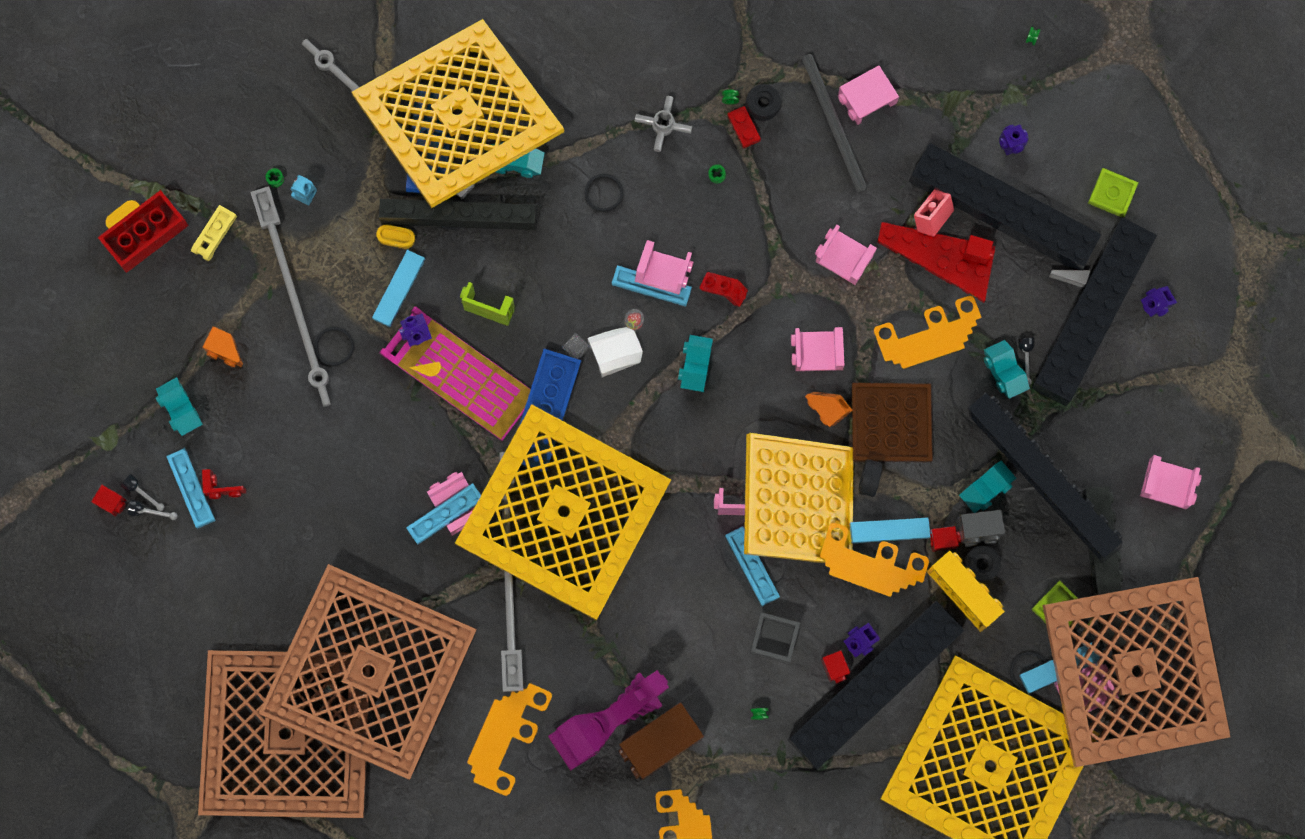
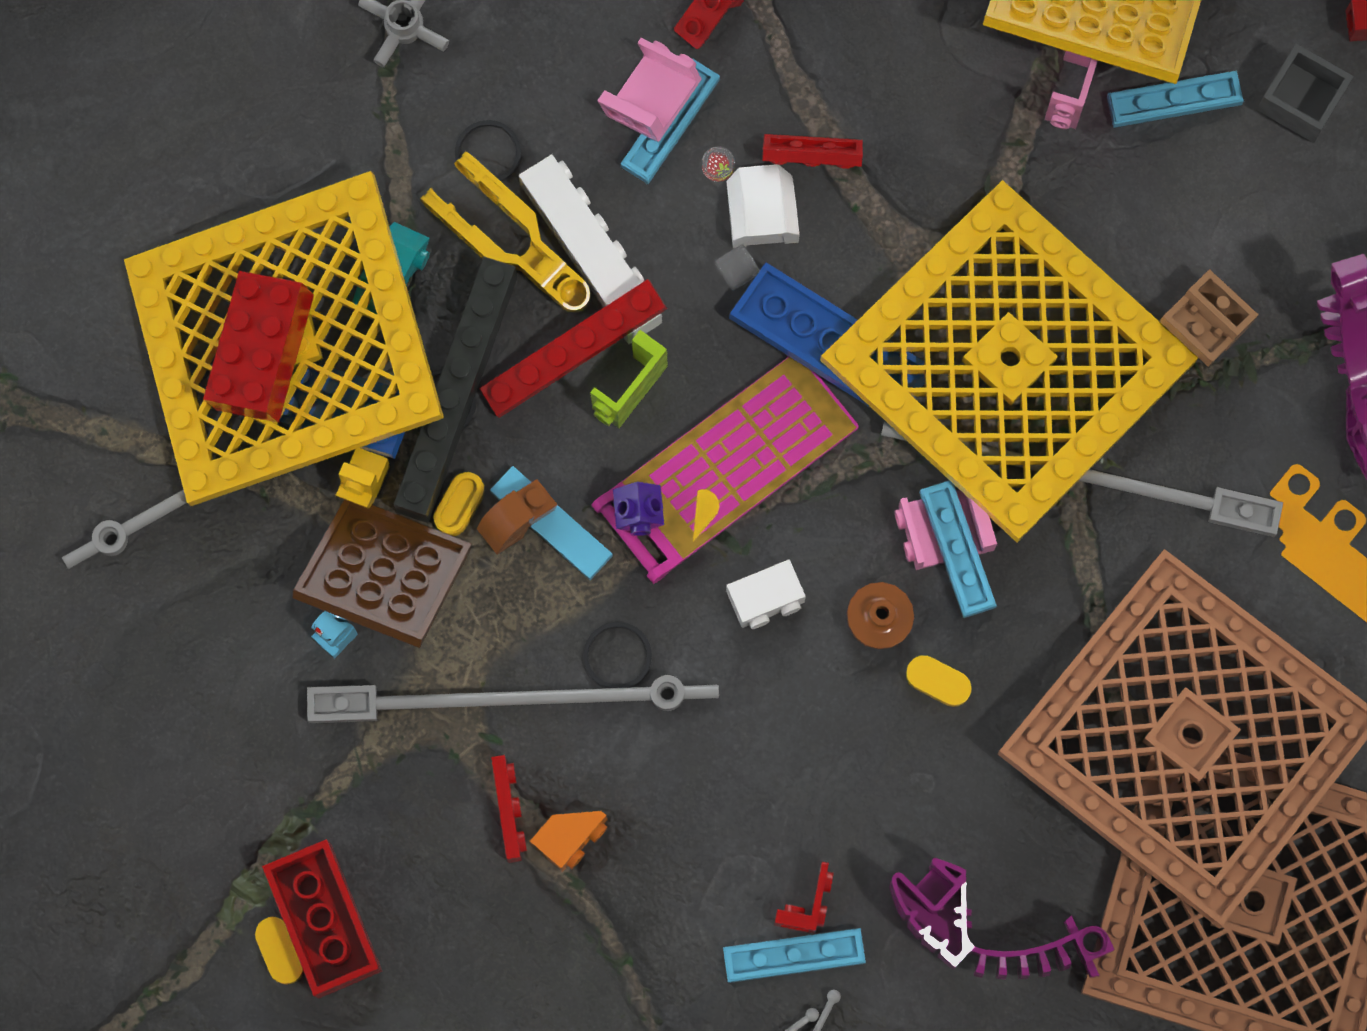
camera: 70 degrees left, 0 degrees up
(176, 401) = (650, 937): teal brick -> none
(214, 232) = (358, 801): light yellow plate -> none
(227, 558) = (939, 918): none -> magenta piece
(230, 311) = (509, 808): none -> red plate
(275, 184) = (302, 679): green bush -> none
(340, 204) = (382, 572): none -> reddish brown plate
(366, 524) = (938, 681): none -> yellow tile
(388, 414) = (766, 594): none -> white brick
(391, 179) = (362, 477): none -> yellow brick
(394, 265) = (514, 514): none -> dark orange brick
(403, 482) = (875, 631): none -> dark orange piece
(443, 98) = (258, 346): none -> red brick
(498, 269) = (573, 348): none -> red plate
(544, 238) = (538, 263): none -> yellow piece
(561, 263) = (582, 234): none -> white brick
(620, 618) = (1209, 318): none -> medium nougat brick
(656, 368) = (812, 150): none -> red plate
(696, 363) = (834, 91): teal brick -> none

